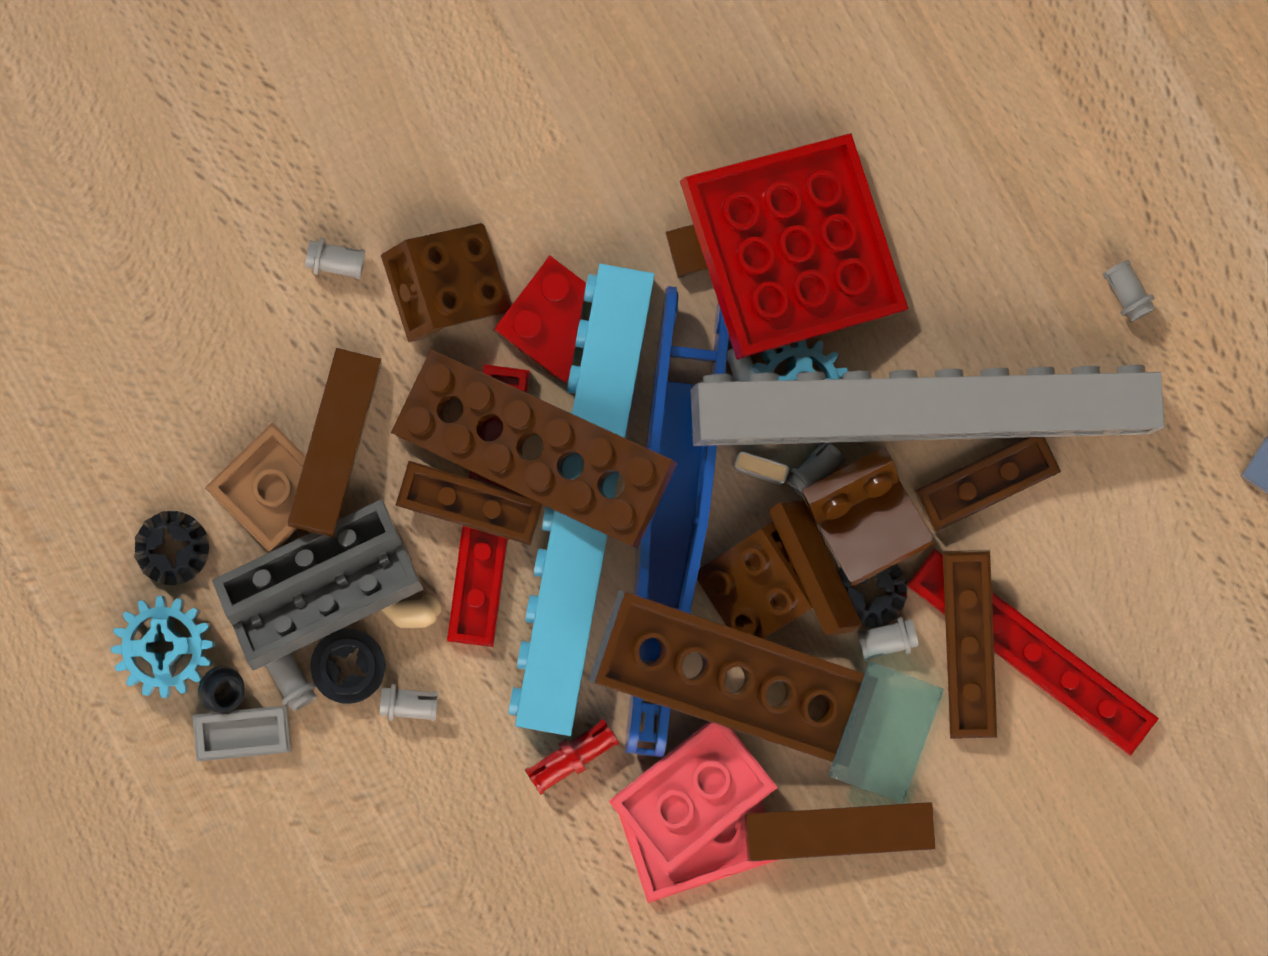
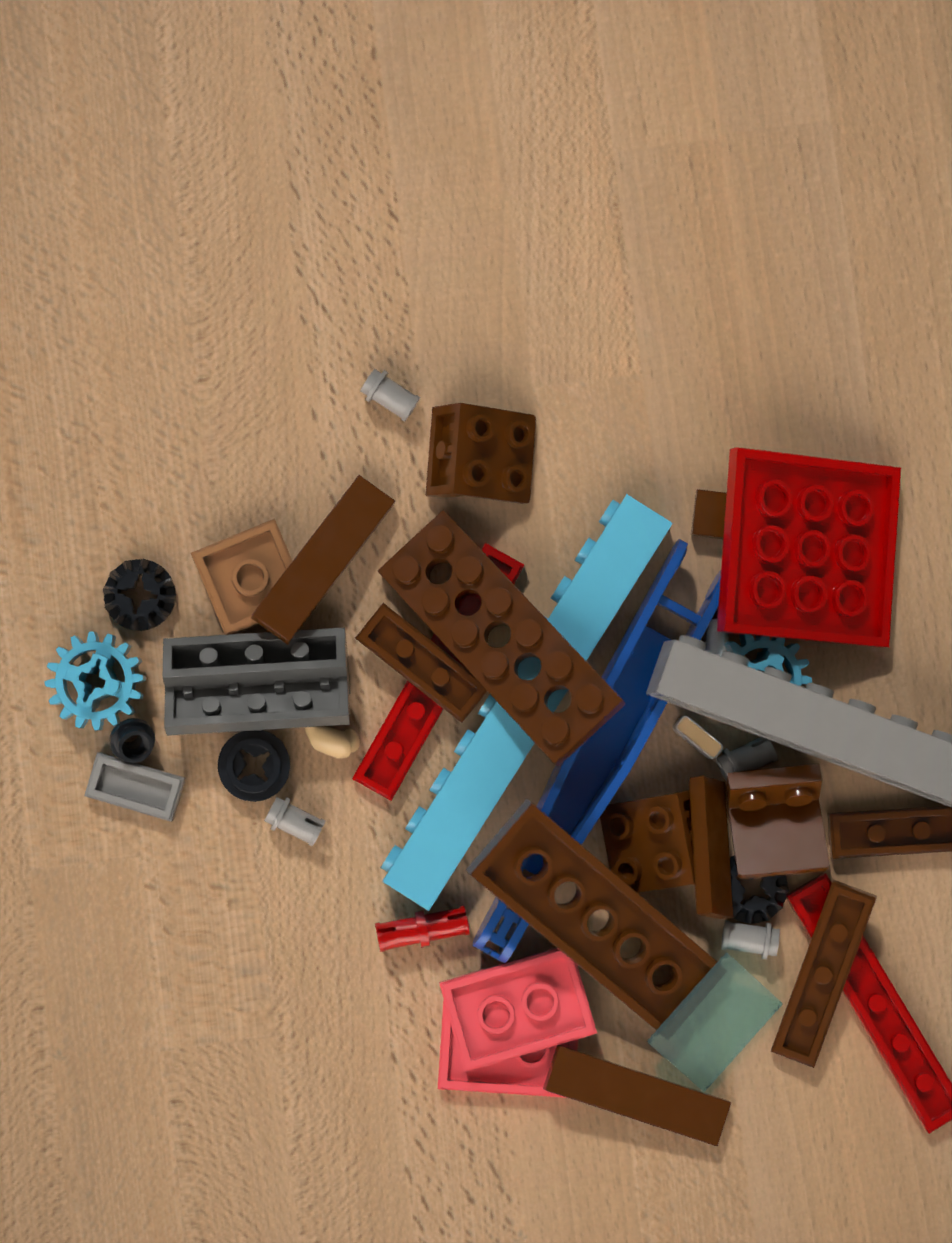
camera: 25 degrees right, 0 degrees up
(291, 682) = (197, 760): light grey pin -> none
(546, 318) = (558, 524): red wing -> none

